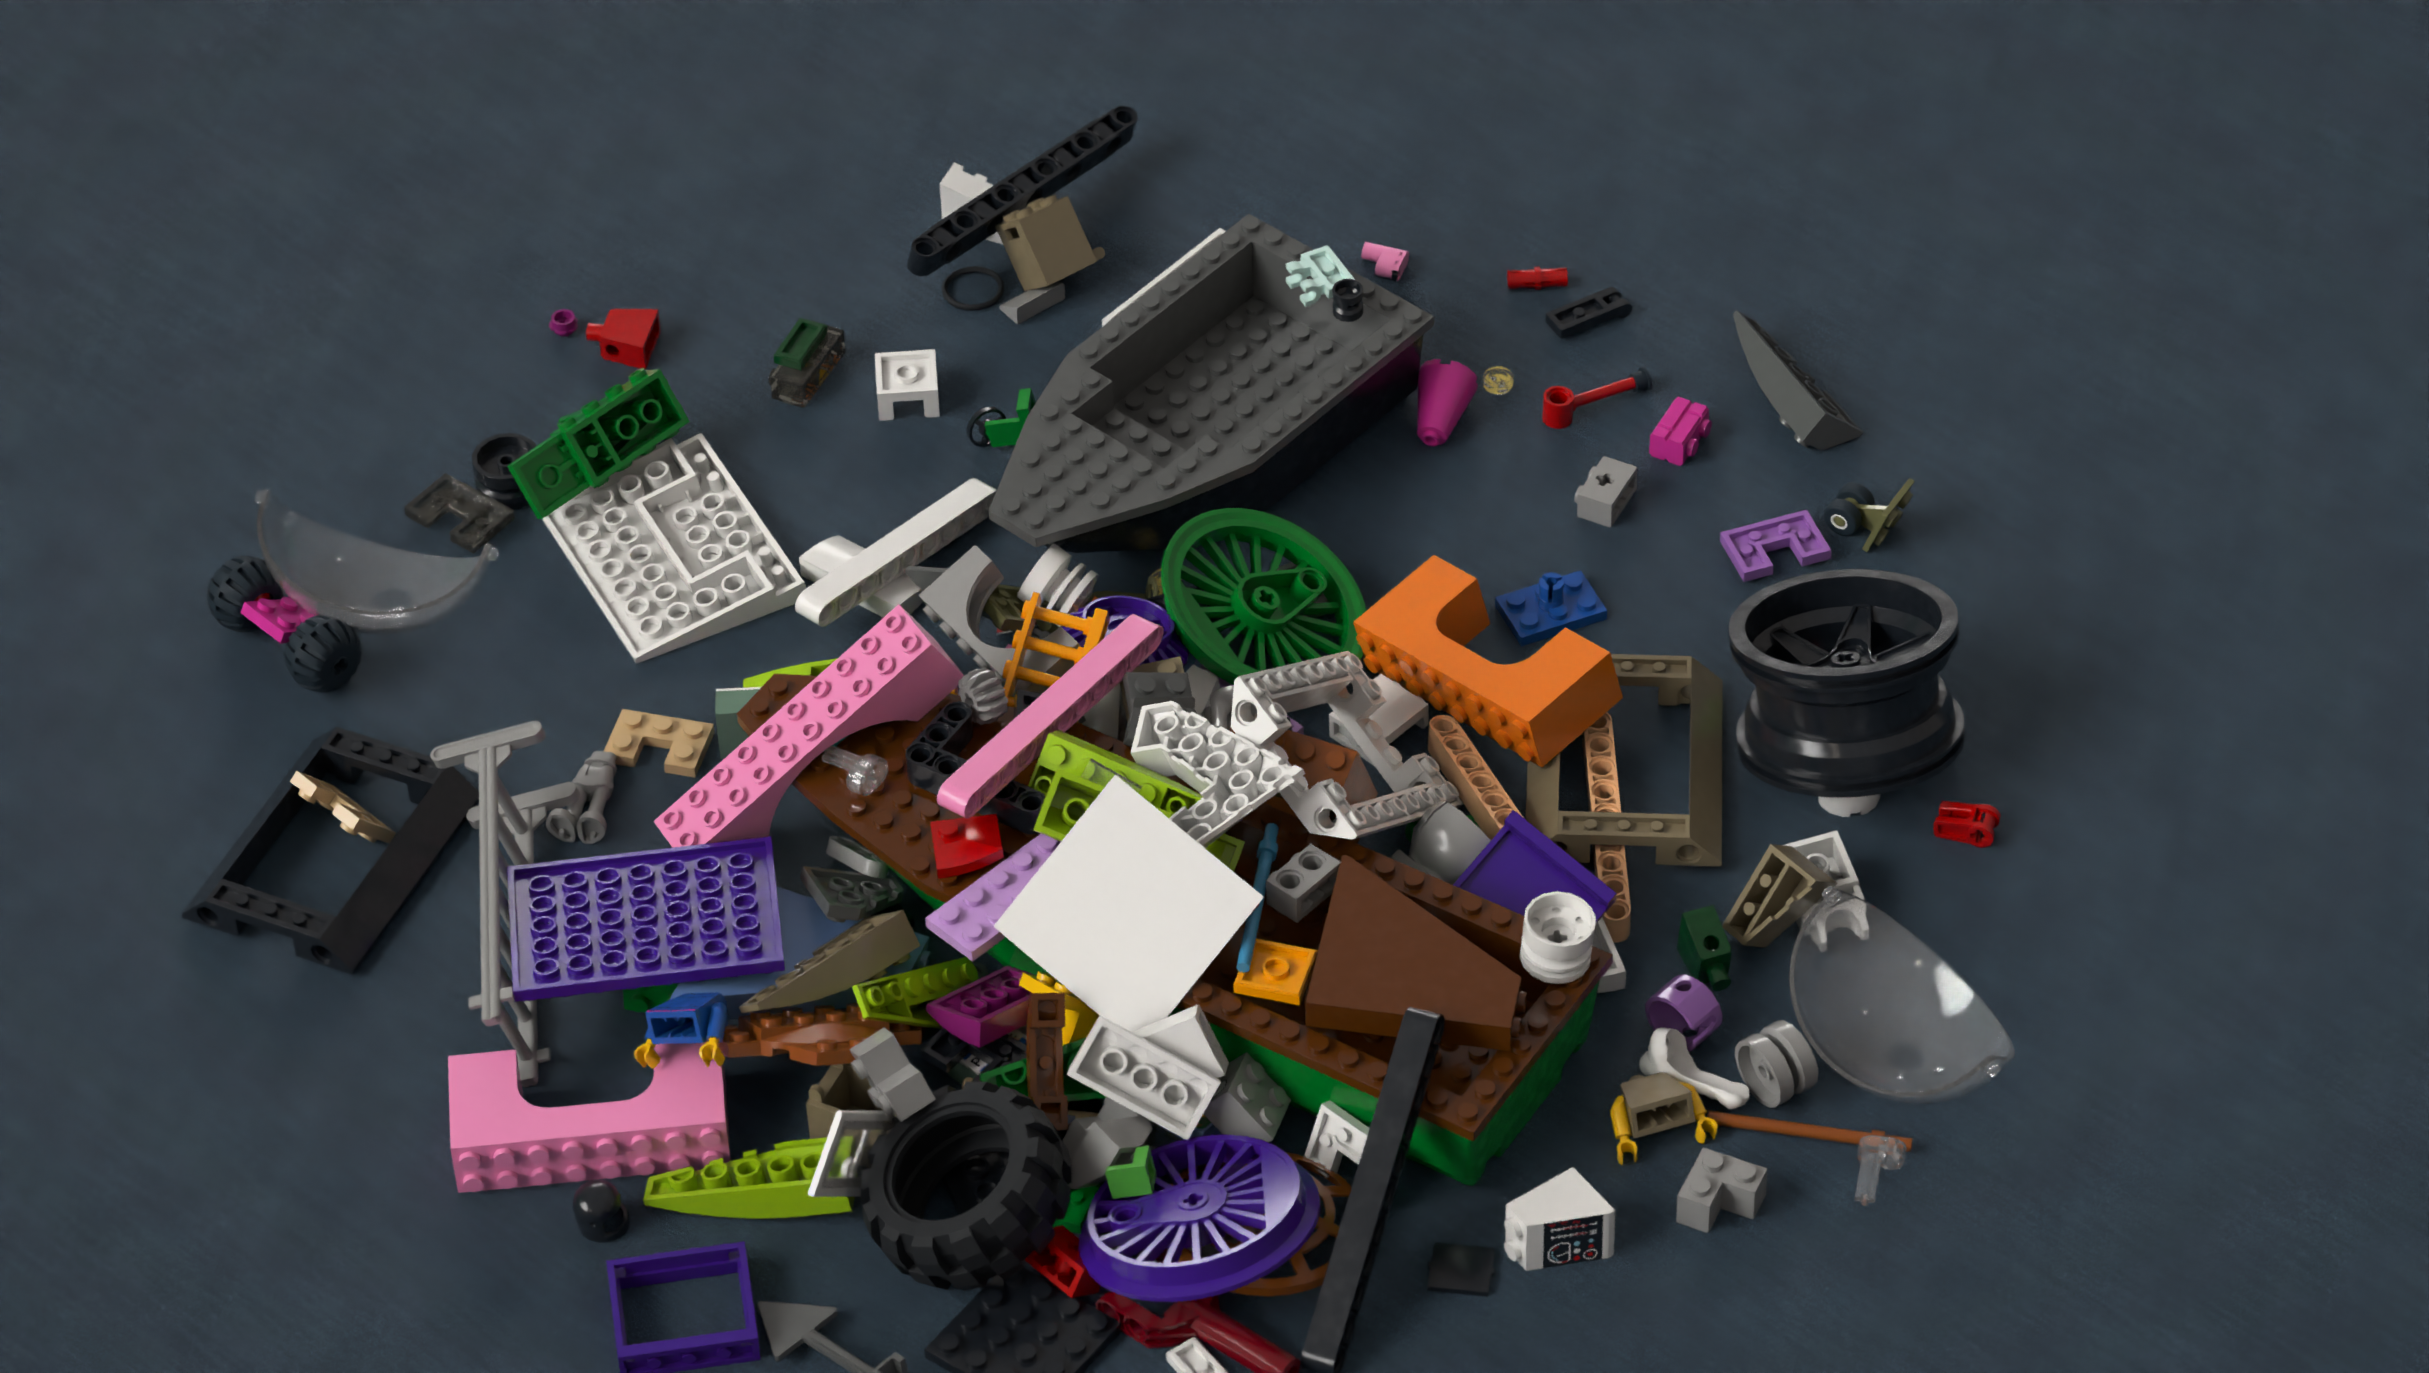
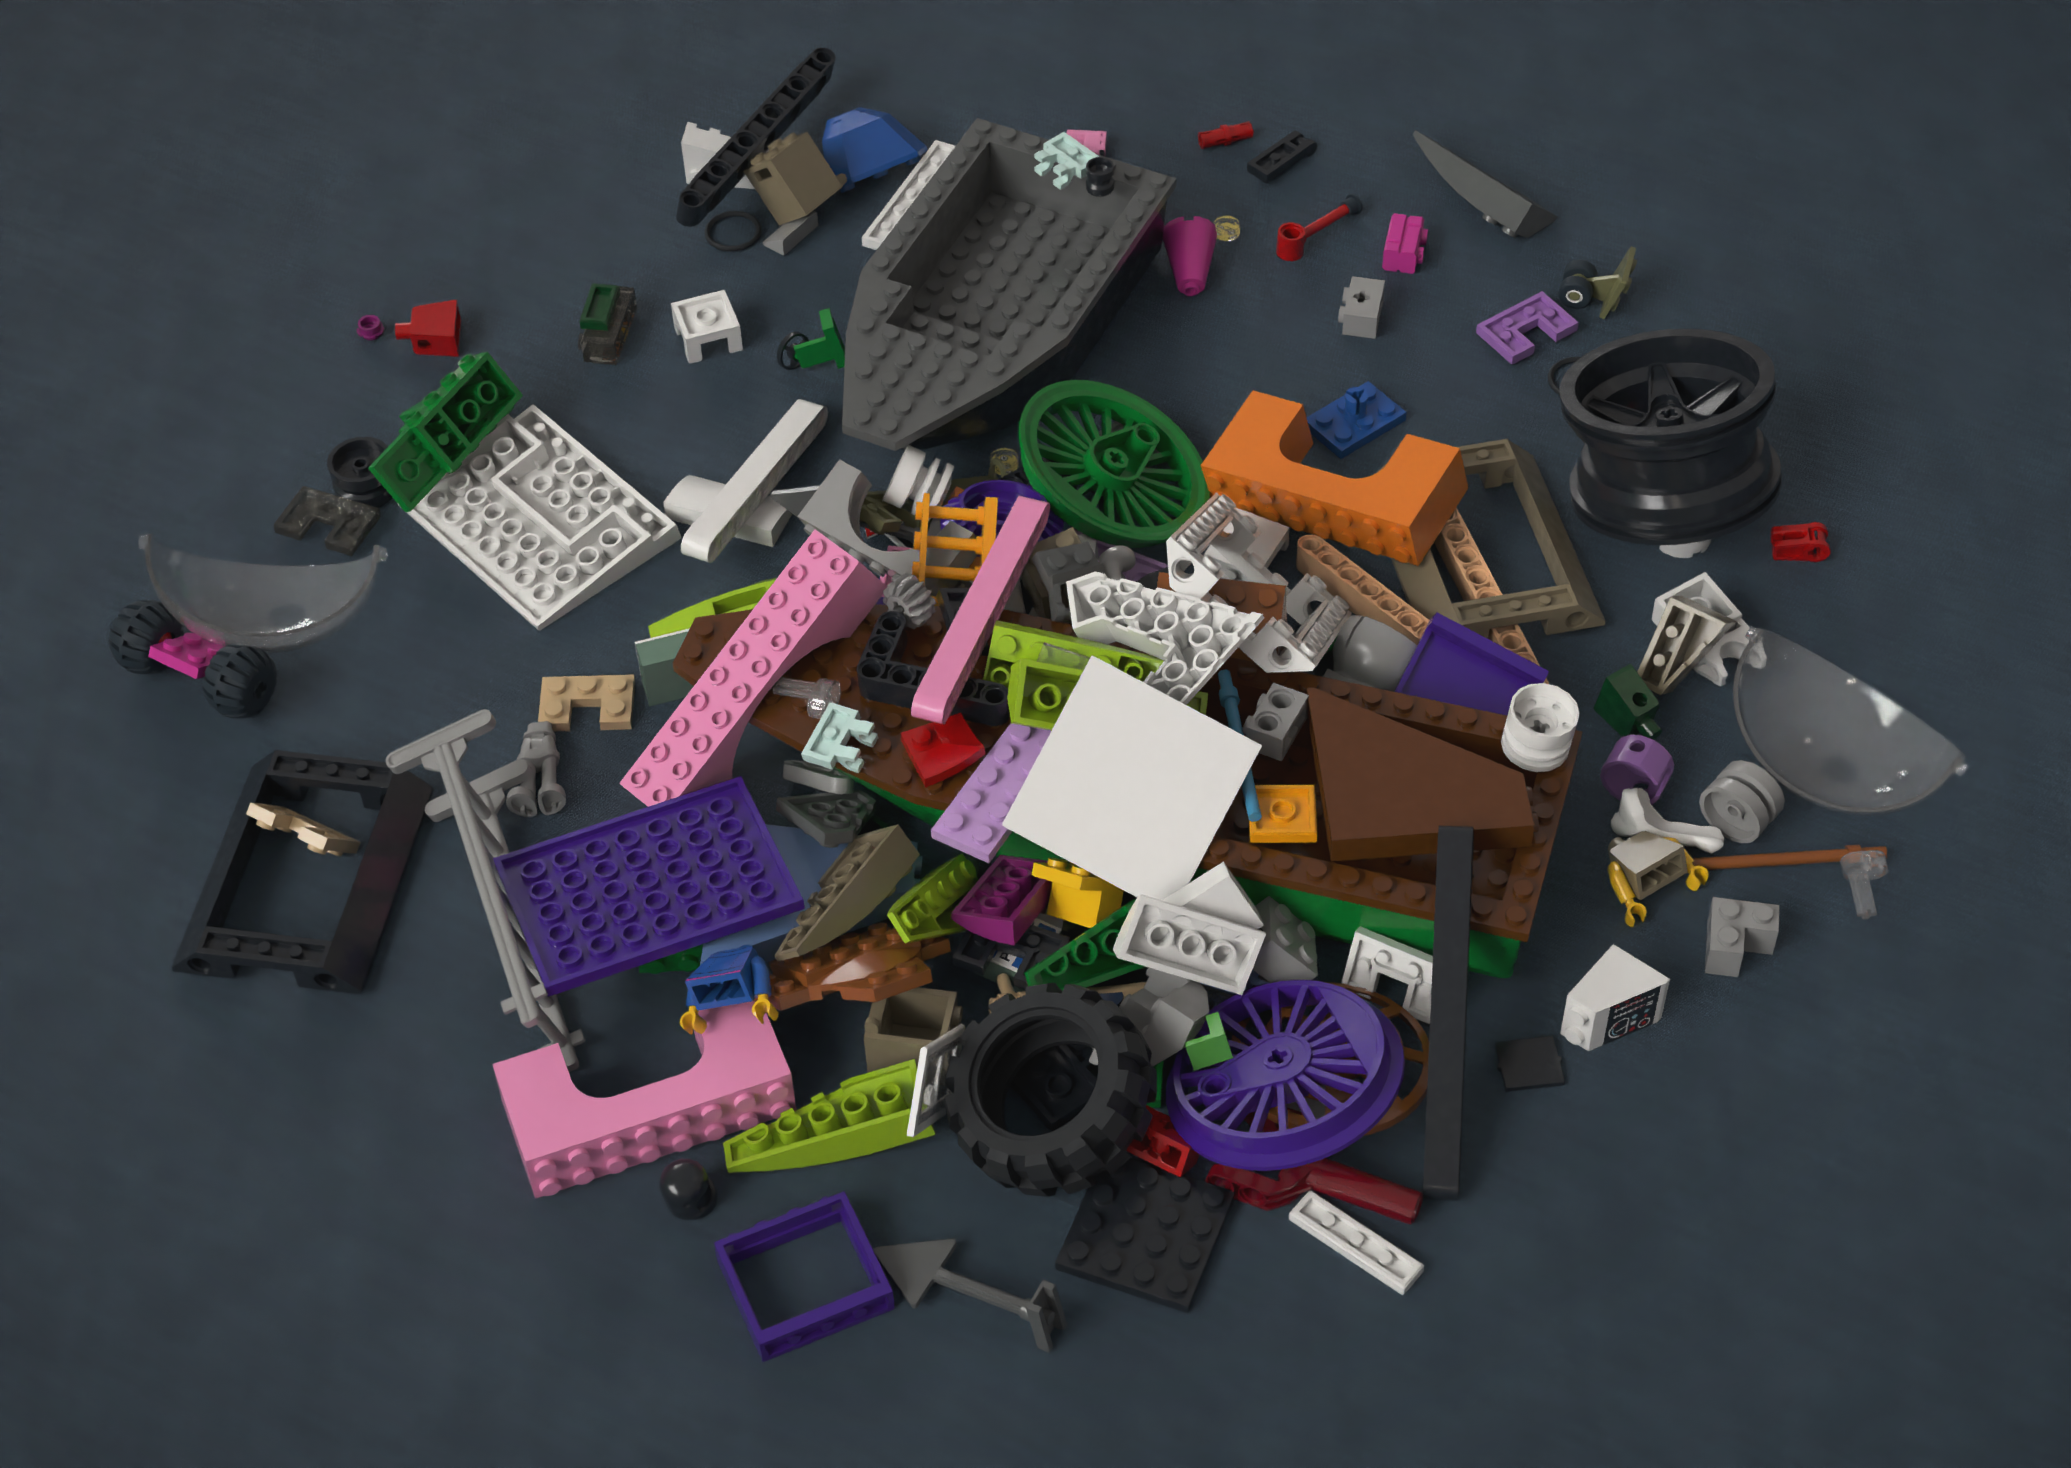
camera: 15 degrees left, 5 degrees up
(862, 810) = (831, 735): none -> light aqua plate
(893, 1080) = (950, 997): light grey brick -> none
(1045, 1056) = (1083, 941): reddish brown slope -> none
(1140, 220) = (868, 144): none -> blue brick

